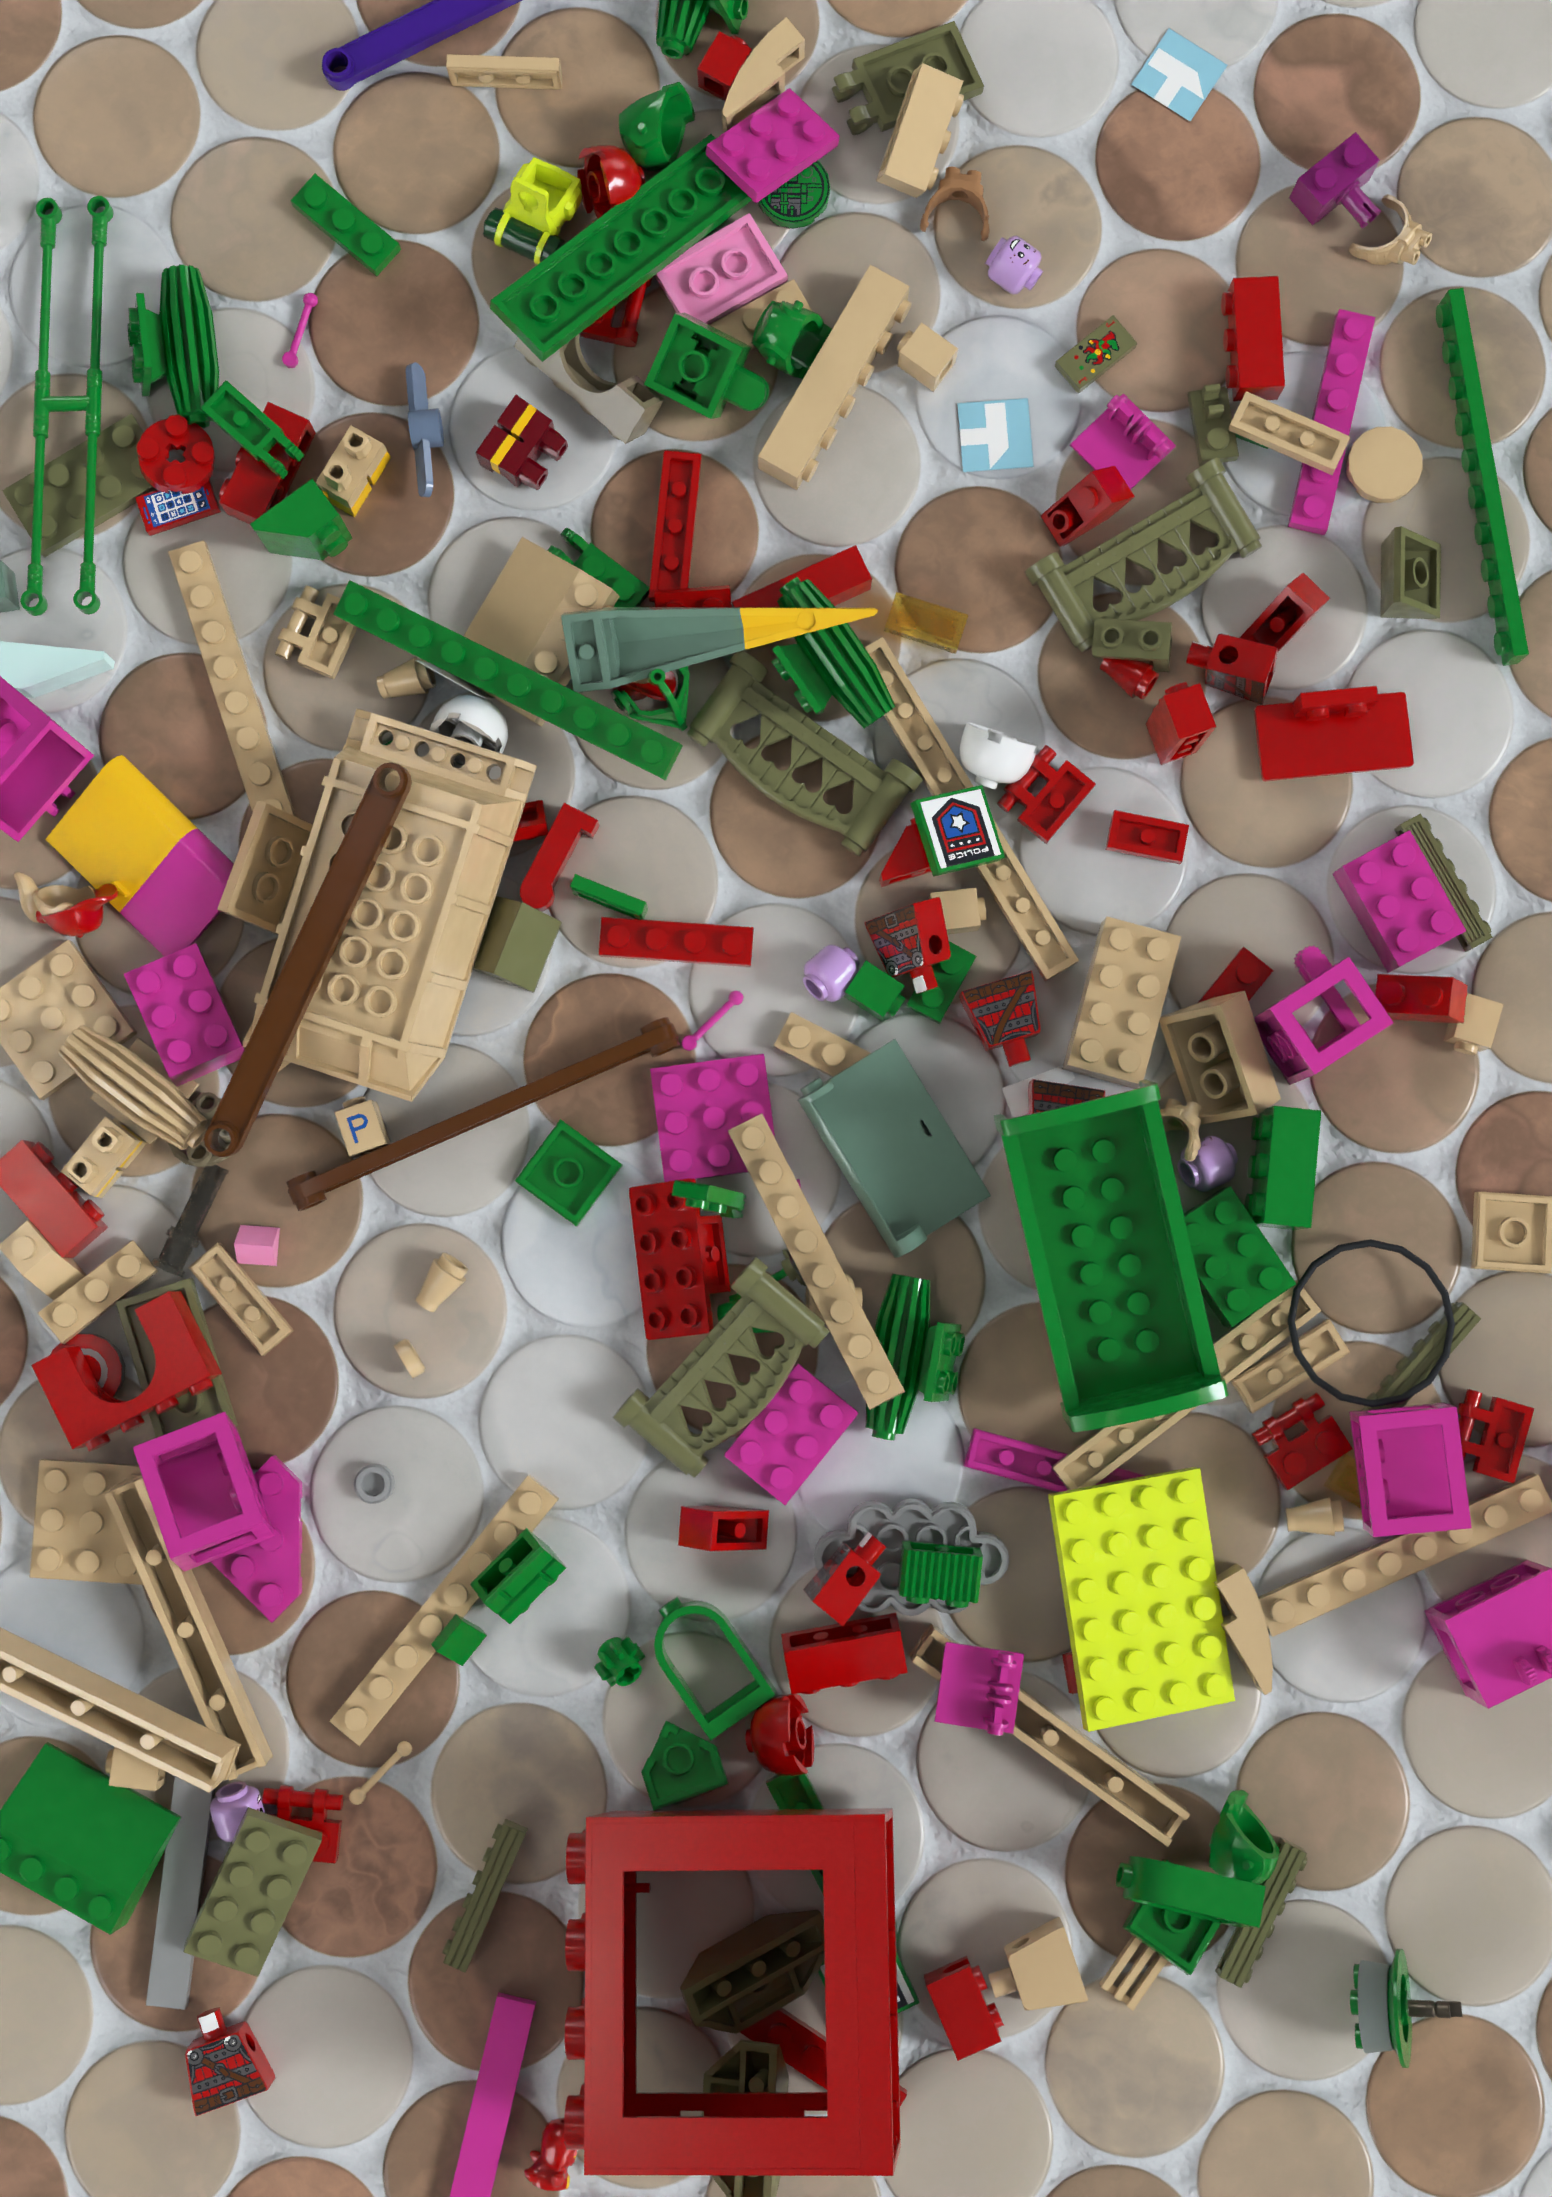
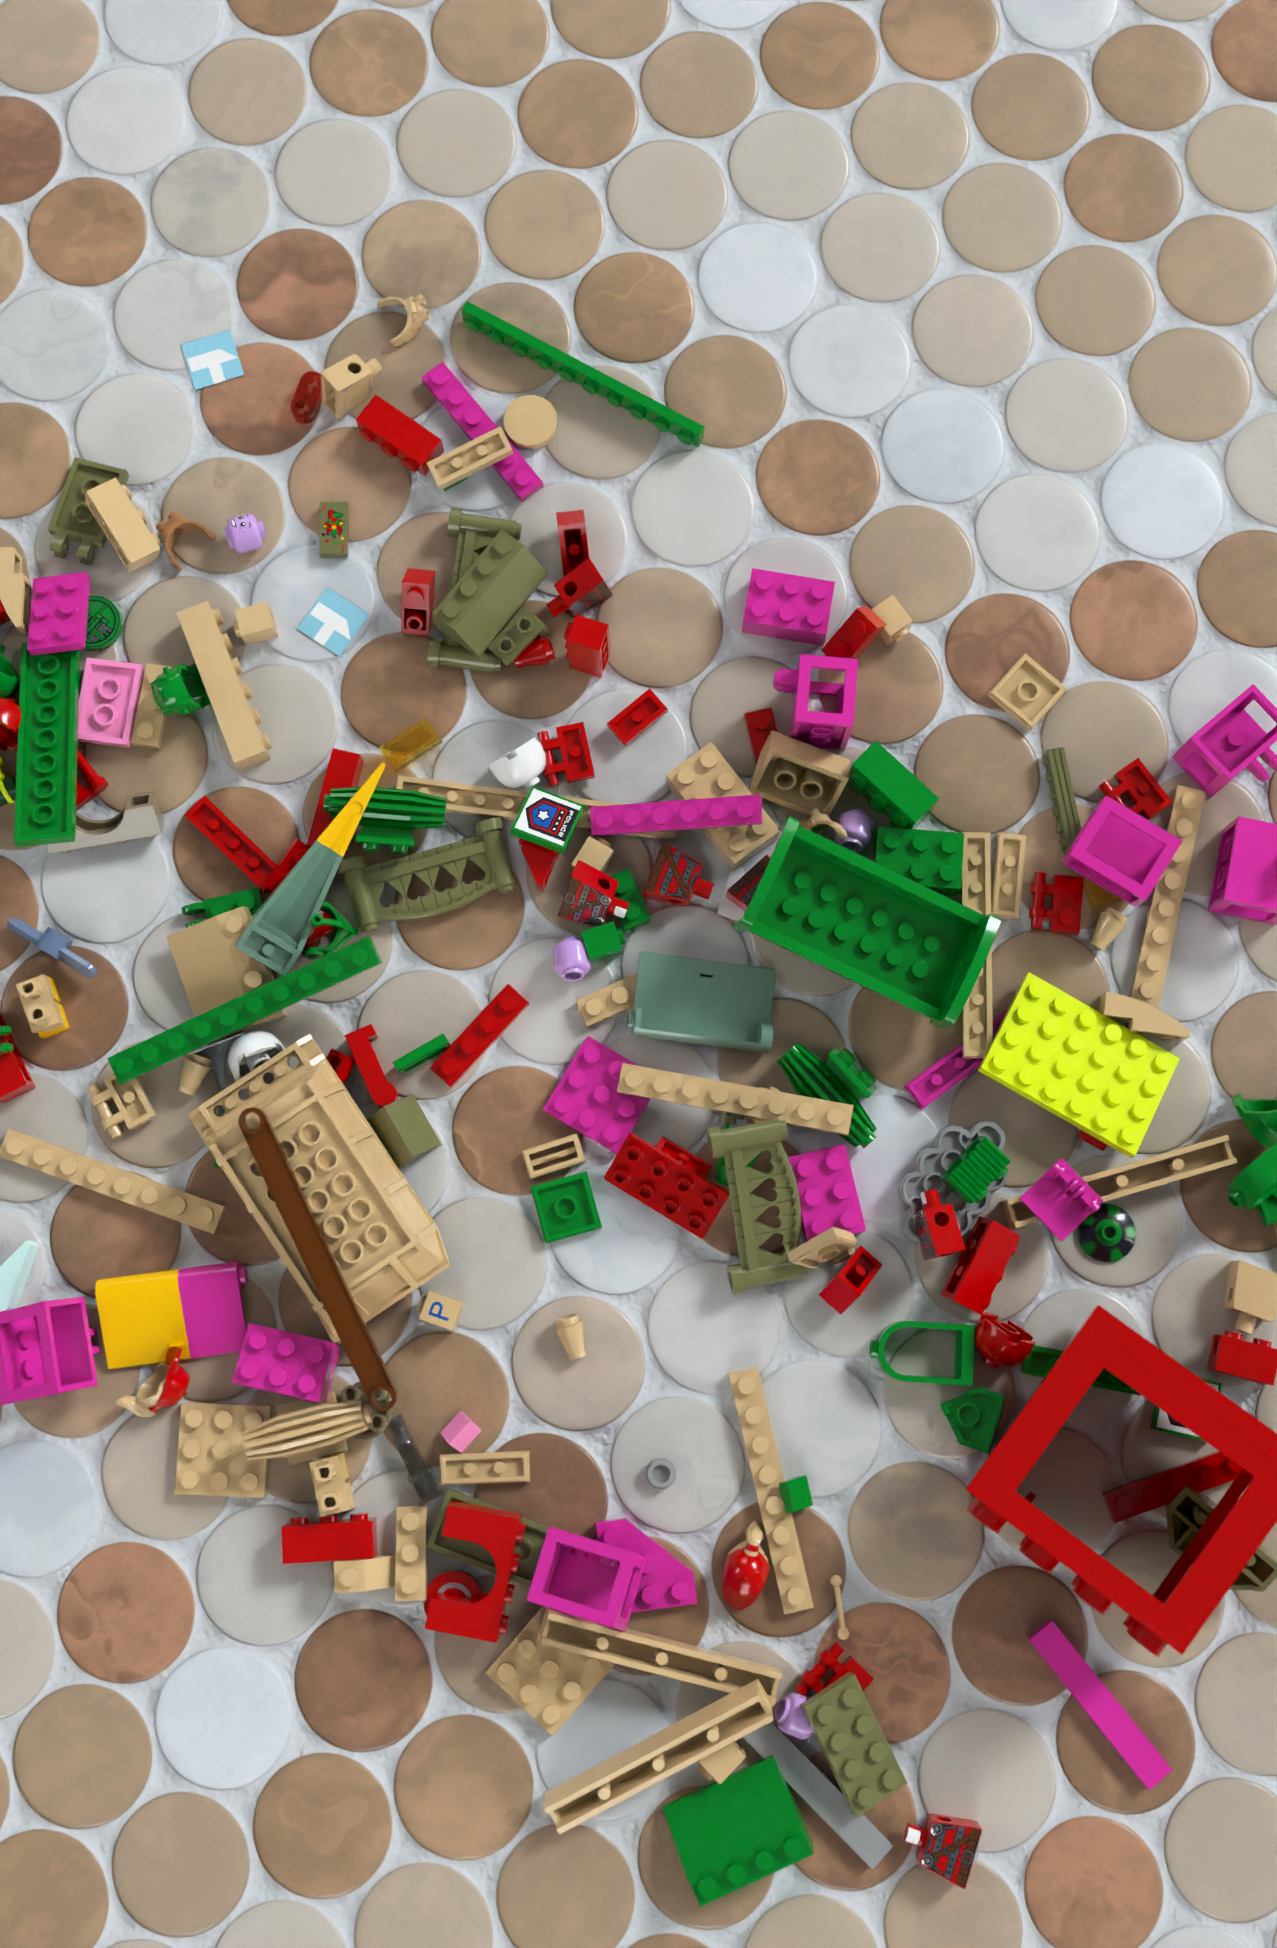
camera: 50 degrees left, 5 degrees down
(265, 867) = (240, 1243): tan plate -> none
(303, 526) = (52, 1060): green slope -> none
(310, 1190) = (452, 1371): reddish brown piece -> none
(343, 1646) = (745, 1570): none -> red hair
(409, 1358) = (602, 1390): tan tile -> none
(487, 1890) = (963, 1600): olive piece -> none
(518, 1576) = (785, 1426): green brick -> none
(519, 442) = (108, 896): dark red hips -> none
(552, 2163) = (1152, 1675): red animal -> none
(584, 1100) = (530, 1163): none -> tan tile
(619, 1661) = (883, 1405): green gear -> none
(690, 1042) = (545, 1073): dark pink hinge -> none
(705, 369) = (158, 753): green brick -> none
(710, 1198) = (649, 1131): green hinge -> none
(741, 1480) = (831, 1245): none -> tan tile
(755, 1971) = (1131, 1465): olive wedge -> none
(967, 1751) = (1092, 1236): none -> dish
(1070, 963) = (676, 815): none -> dark pink plate
(1123, 439) = (397, 551): dark pink hinge -> none
(1154, 574) = (489, 594): none -> olive slope
(1211, 422) = (429, 497): olive plate -> none
(1216, 201) = (303, 394): none -> clear red beam
(1267, 238) = (348, 384): none -> tan torso
(1333, 734) = (662, 568): red bracket -> none
(1337, 182) = (348, 321): magenta brick -> none
(1410, 576) = (605, 457): olive slope -> none
(1436, 1281) = (1020, 755): black piece -> none
(1455, 889) = (839, 575): olive piece -> none

